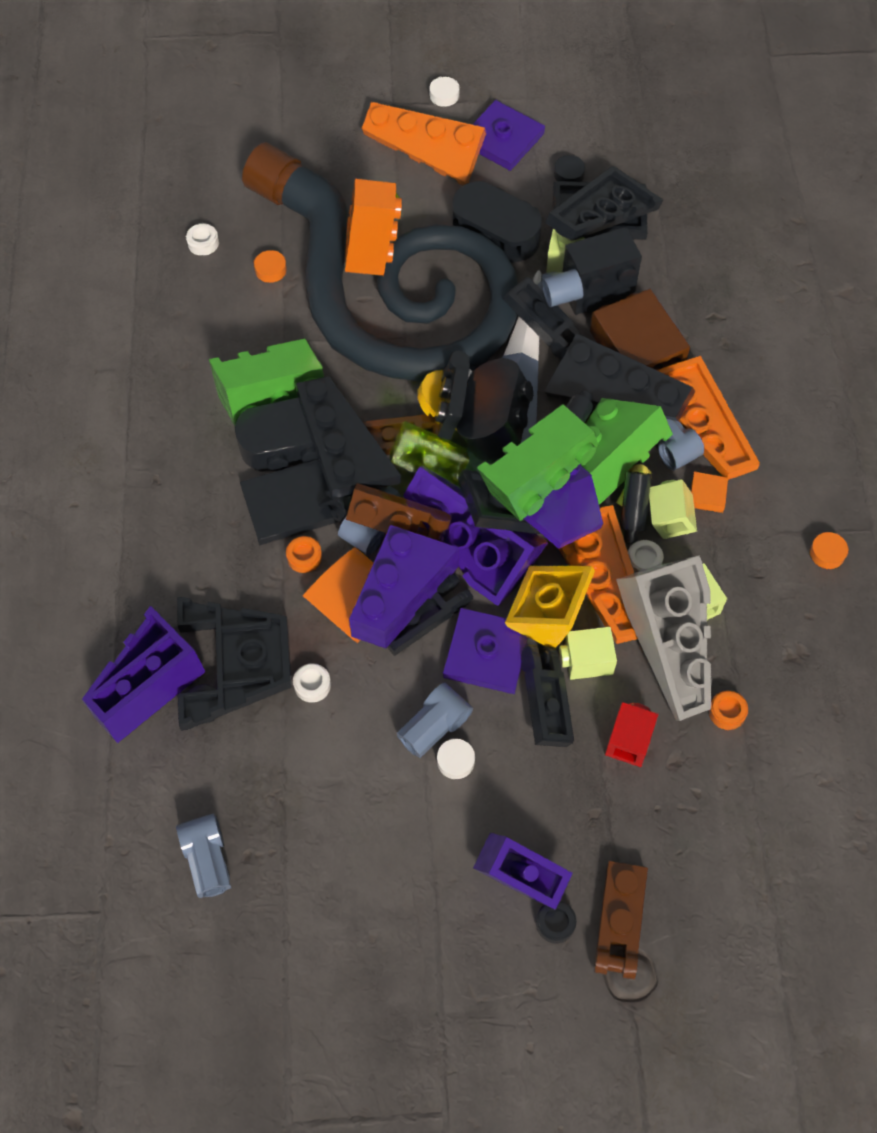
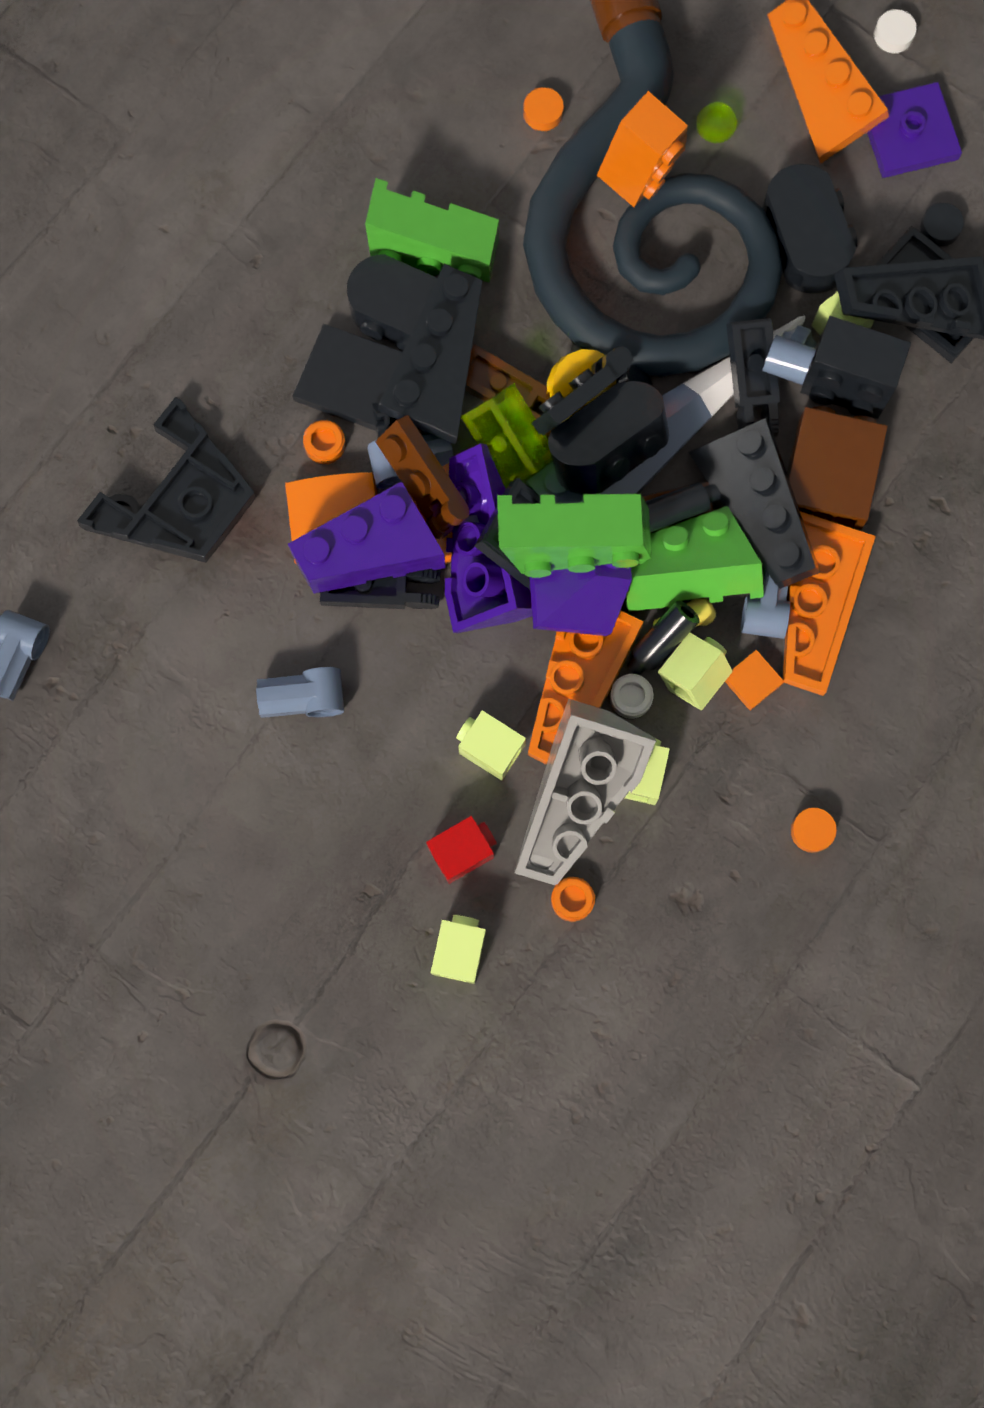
camera: 40 degrees right, 15 degrees up
(143, 677) = (83, 451): dark purple wedge -> none
(202, 239) = (503, 28): white tile -> none
(311, 682) = (229, 571): white tile -> none
(455, 758) = (292, 743): white tile -> none
(485, 652) = (407, 667): dark purple plate -> none
(522, 870) = (254, 889): dark purple slope -> none
(547, 697) = (417, 755): black hinge -> none
(549, 602) = (494, 667): yellow slope -> none
(556, 925) = (252, 954): black tile -> none
(621, 918) = (308, 998): reddish brown plate -> none
(691, 799) = (459, 949): none -> yellowish green brick

